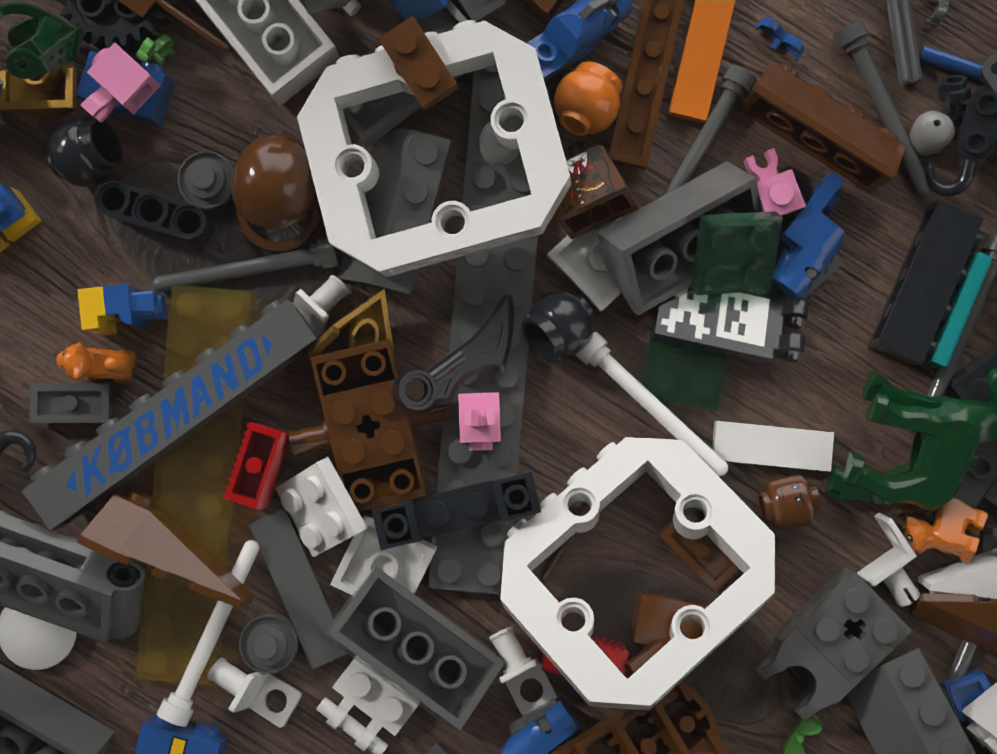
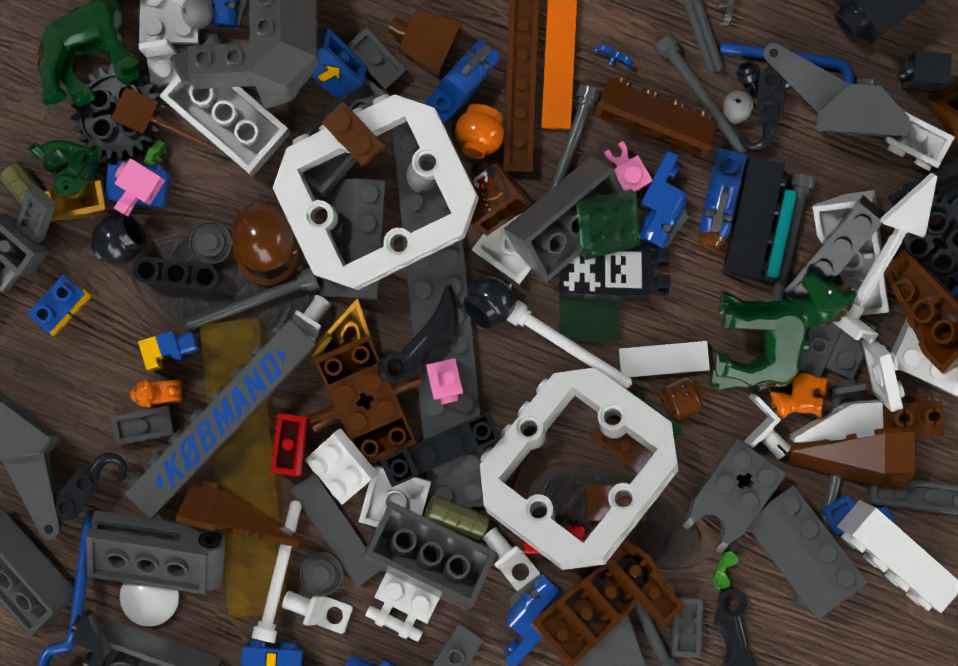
camera: 10 degrees left, 0 degrees up
(460, 604) = (456, 517): none -> olive axle
(888, 248) = (721, 198): none -> blue plate

